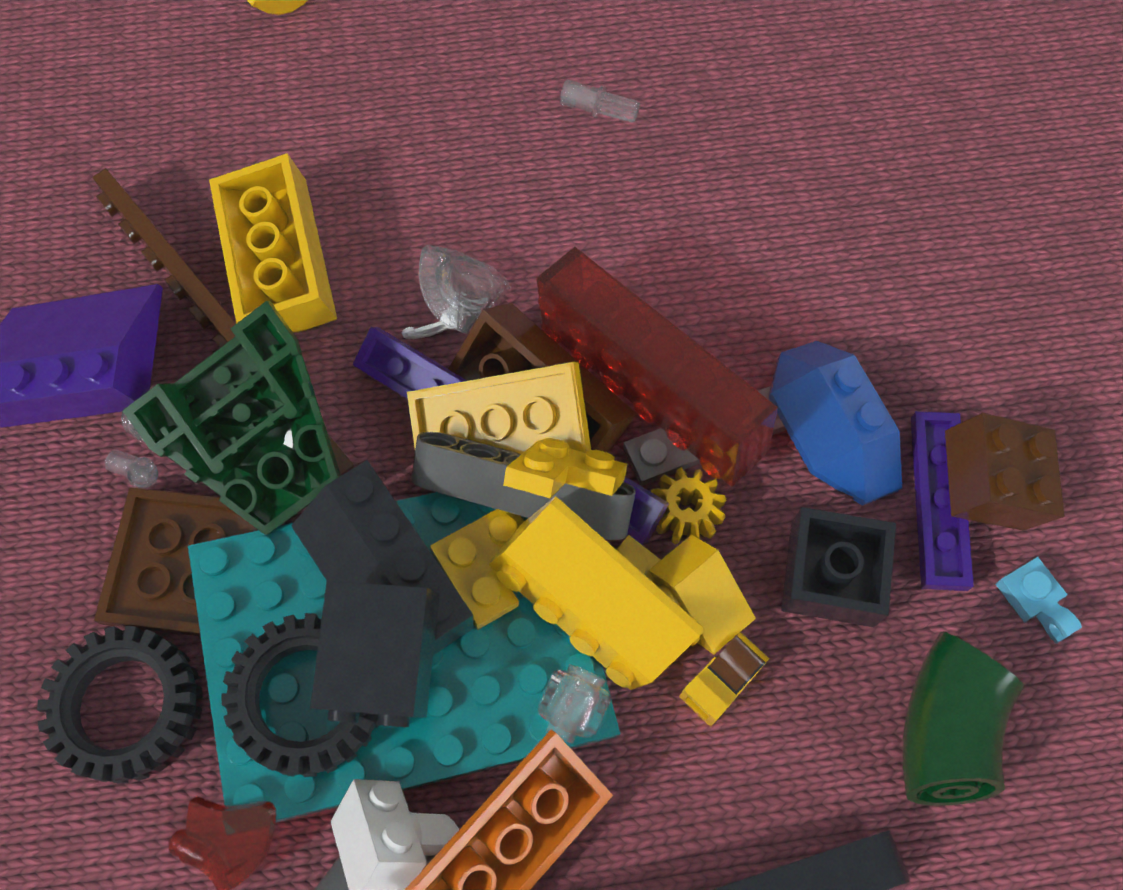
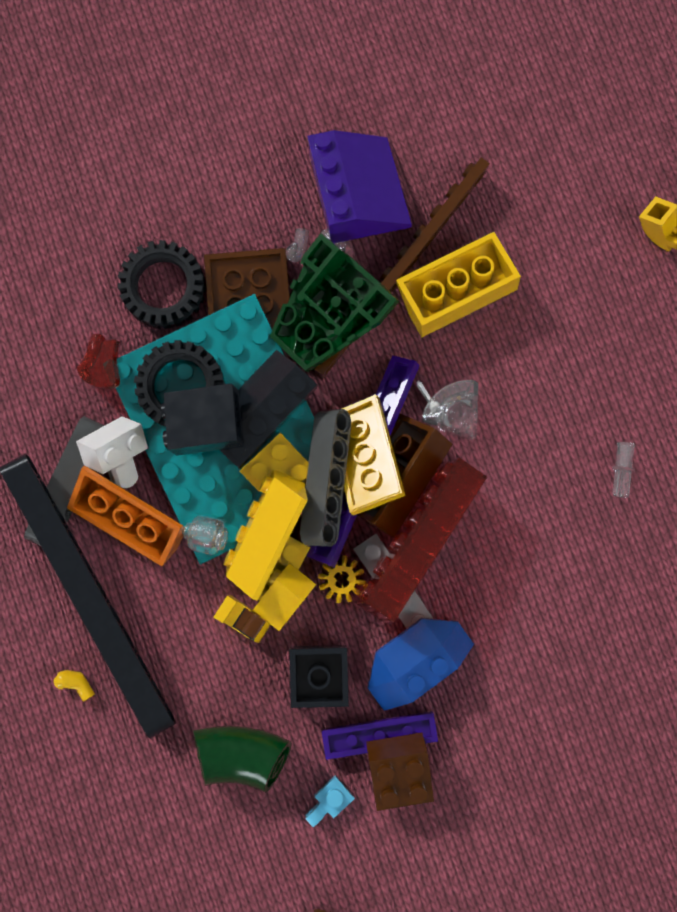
camera: 75 degrees right, 15 degrees up
(552, 464) = (336, 496): yellow plate -> none

